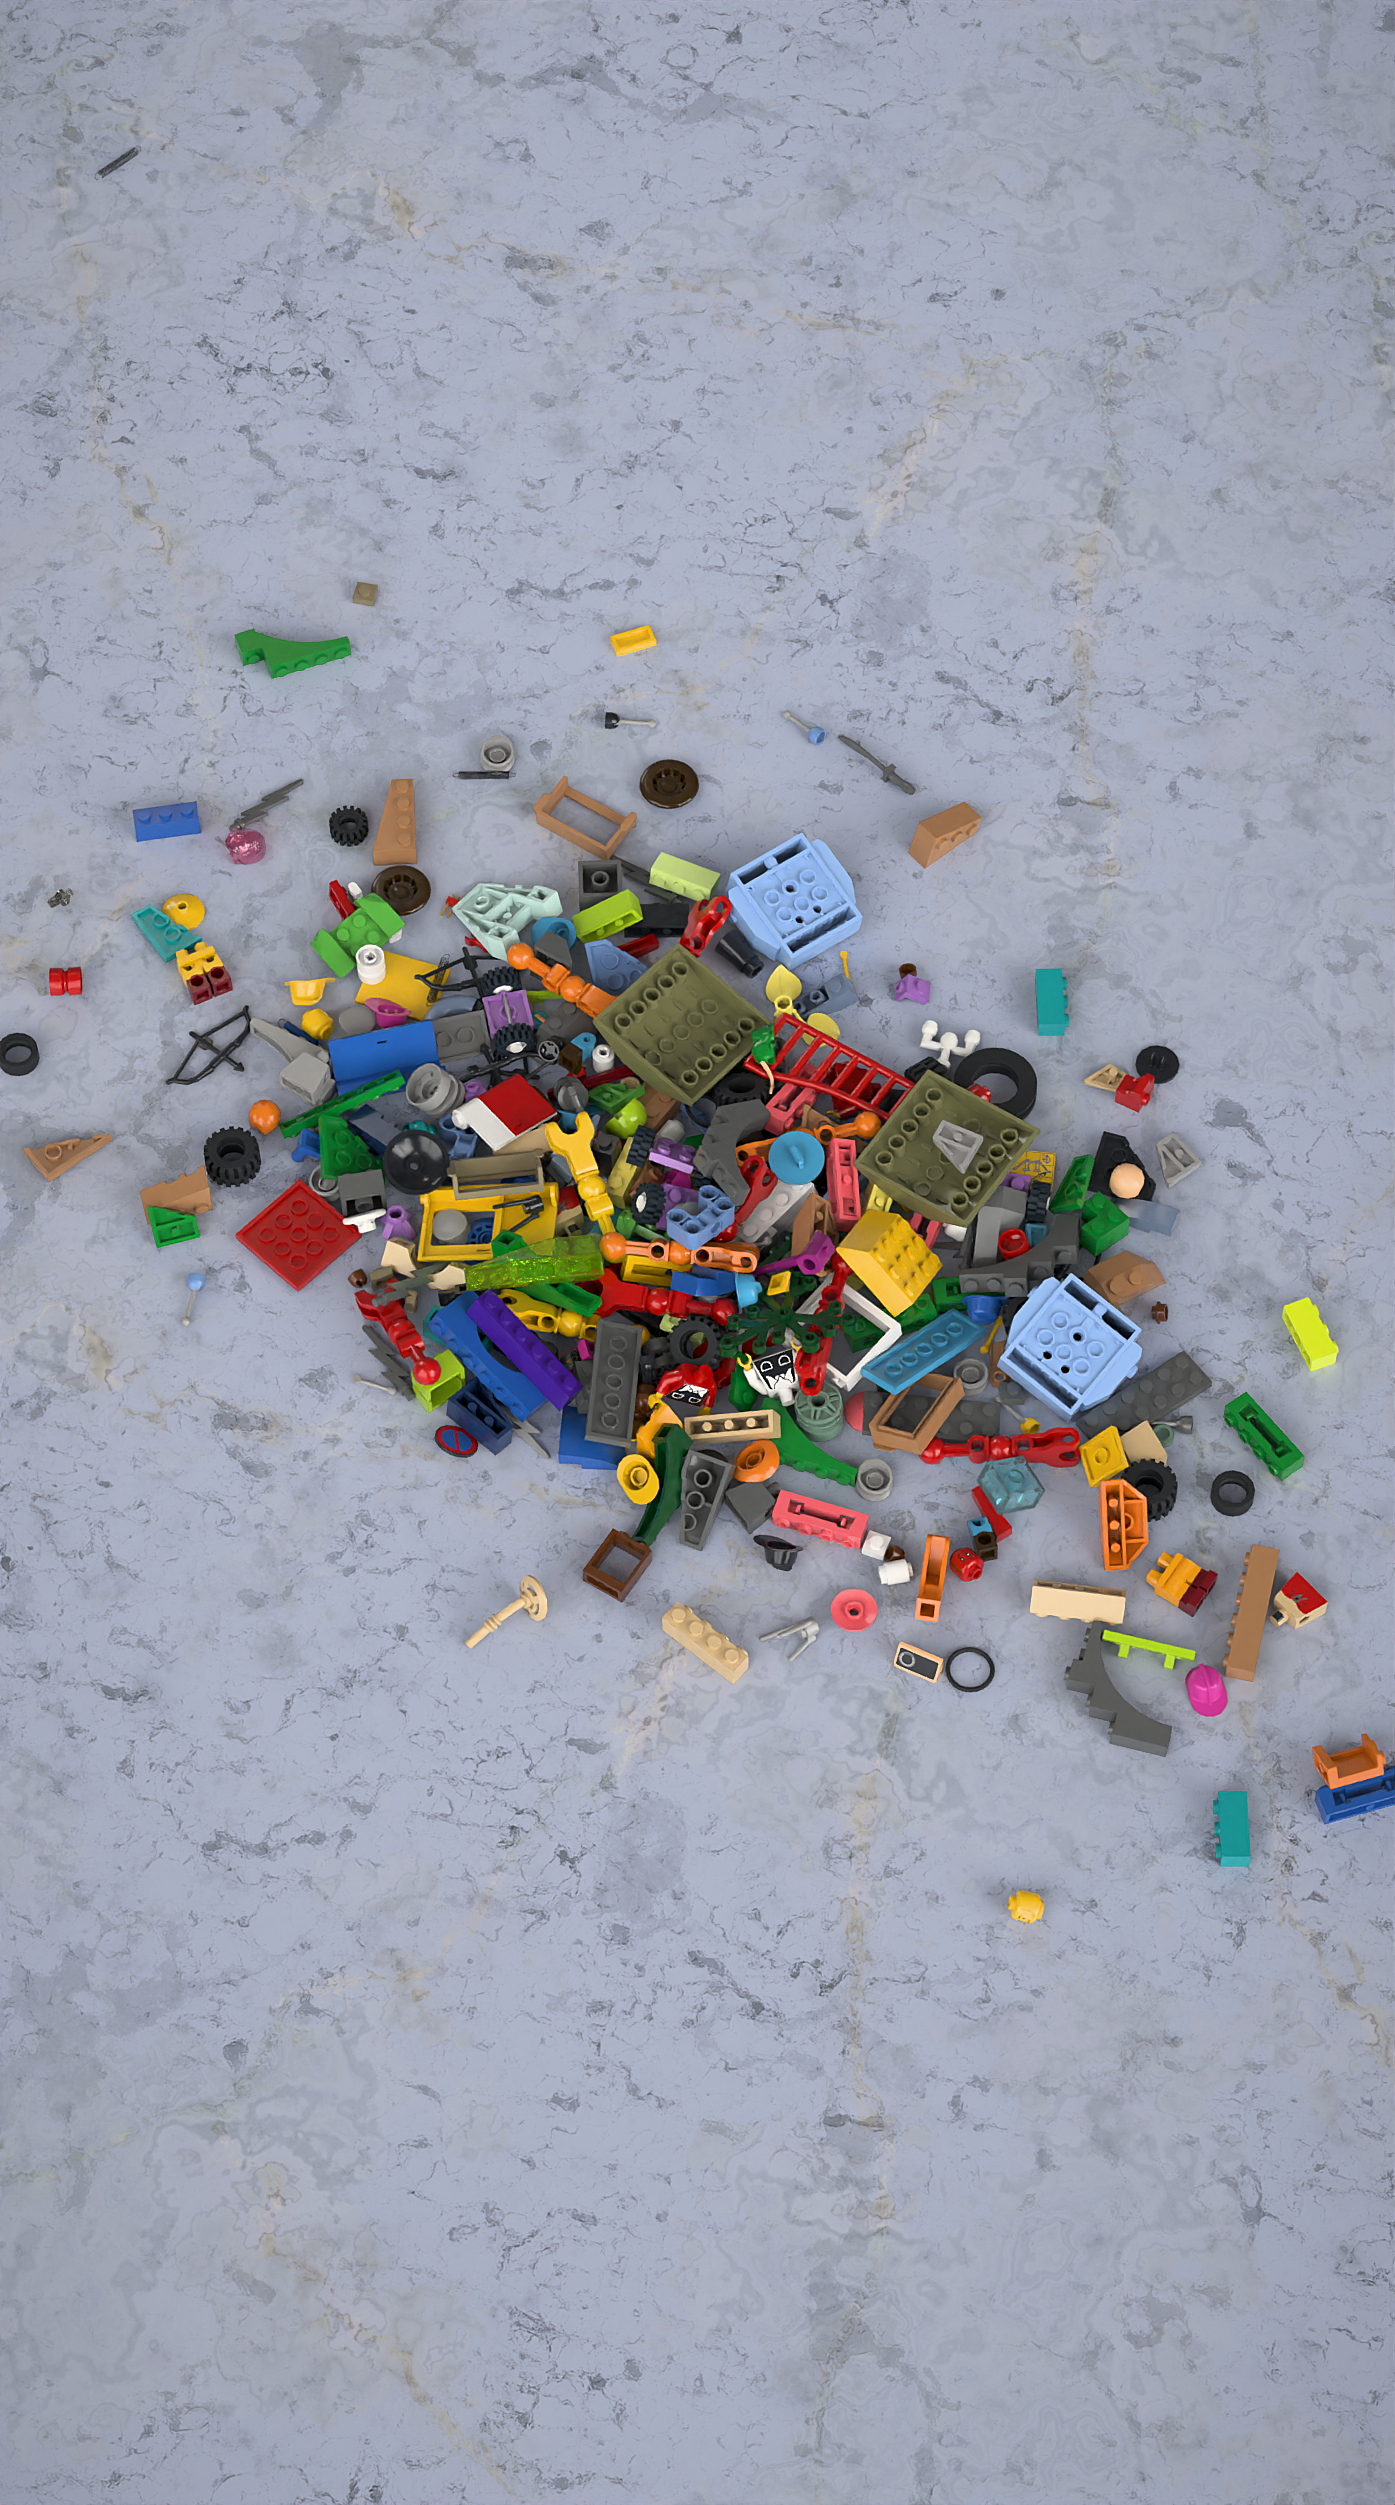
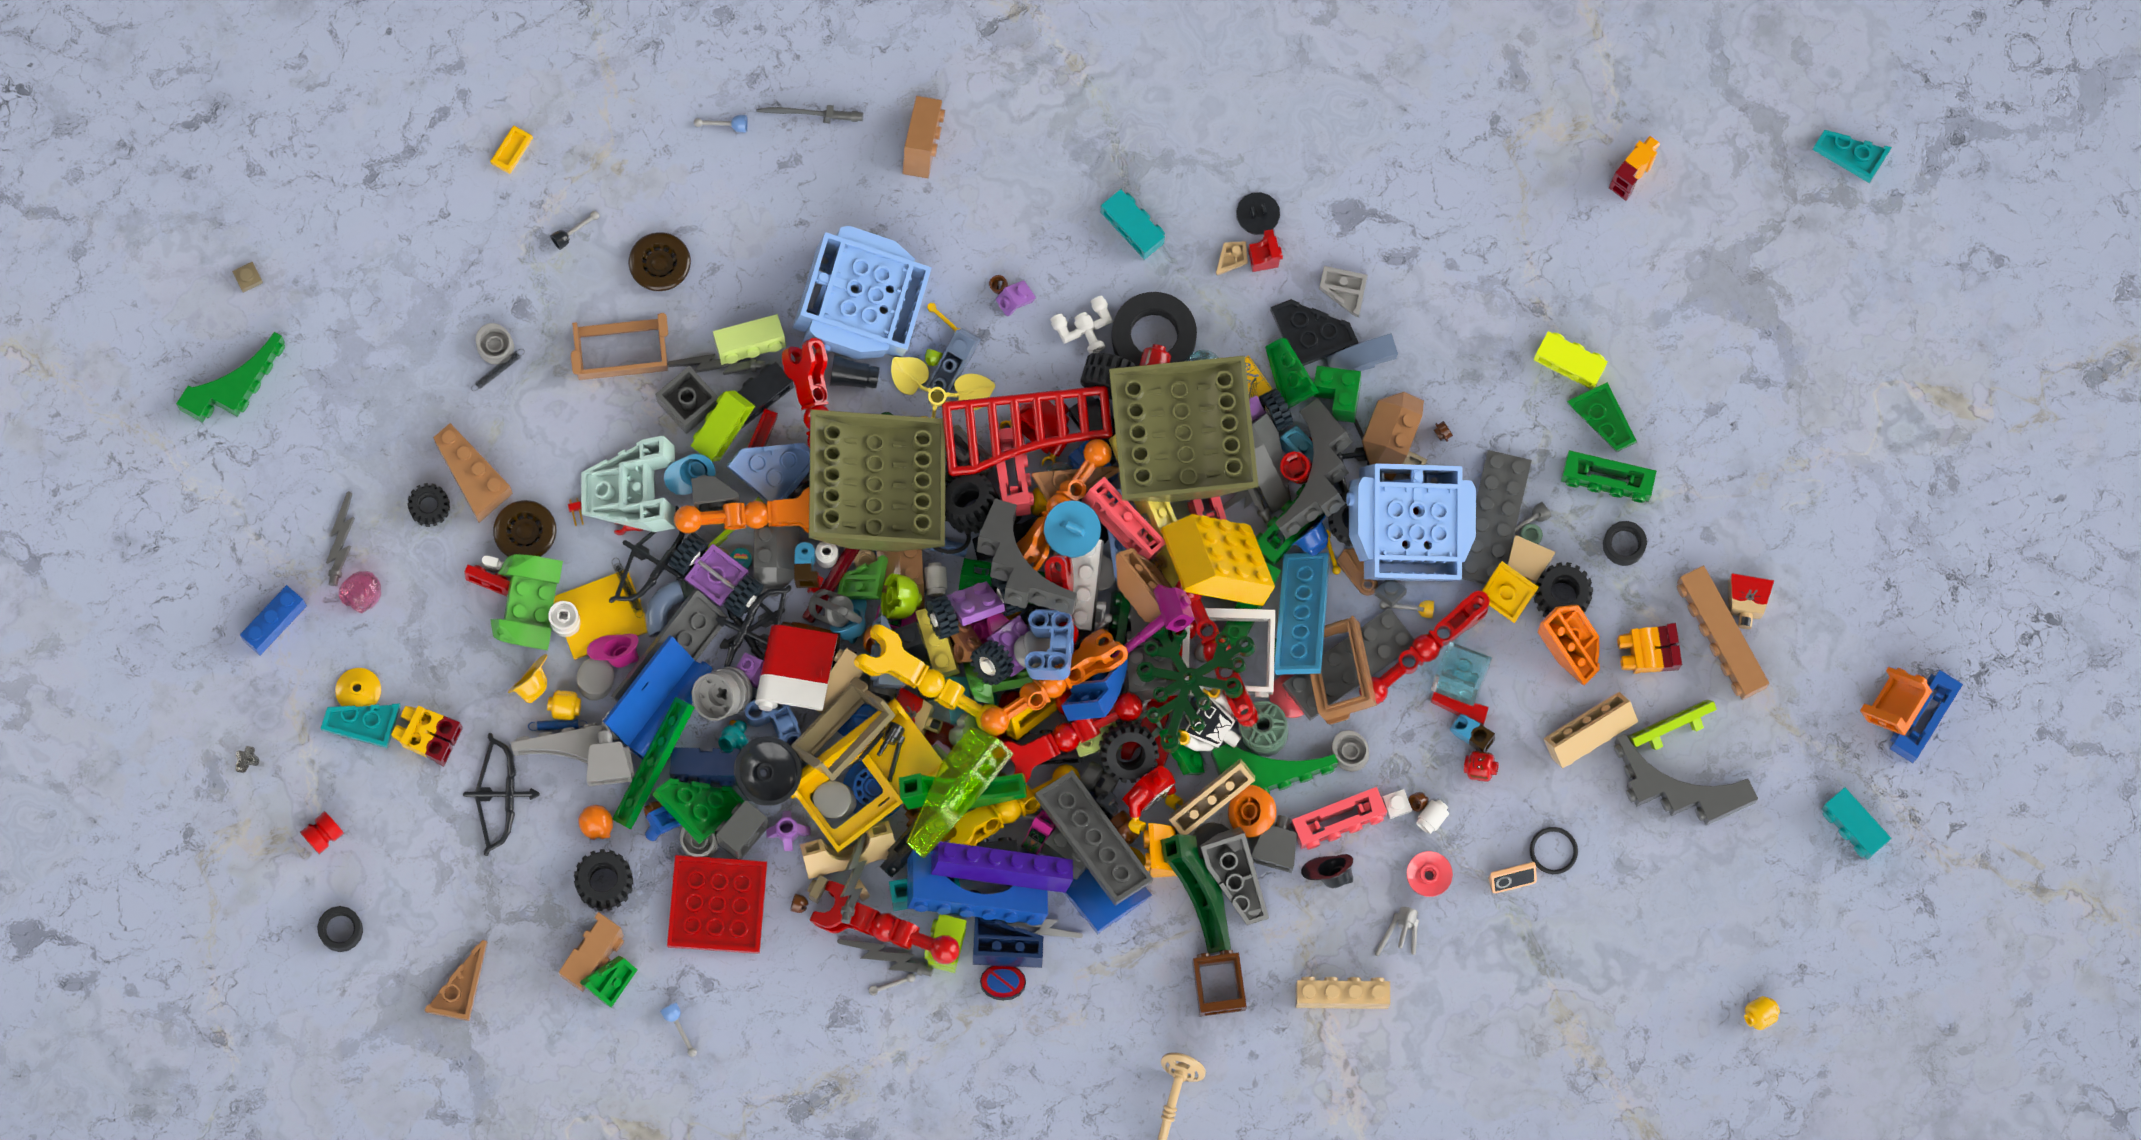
camera: 45 degrees left, 15 degrees up
(366, 1220) = (766, 852): white piece -> none
(547, 1051) = (781, 580): black wheel -> none
(638, 1479) = (1175, 900): yellow piece -> none
(747, 1290) = (1140, 682): dark azure piece -> none
(763, 1049) = (961, 451): green animal -> none
(779, 1283) = (1160, 654): yellow slope -> none
(810, 984) = (933, 357): none -> lime hinge
(932, 1578) = (1468, 800): orange arch -> none
(957, 1144) = (1193, 420): light grey wing -> none
(972, 1374) = (1346, 601): light grey piece -> none
(1126, 1180) = (1327, 338): light nougat hair -> none
(1206, 1690) = (1739, 724): dark pink piece -> none
(1301, 1393) = (1604, 416): none -> green wing

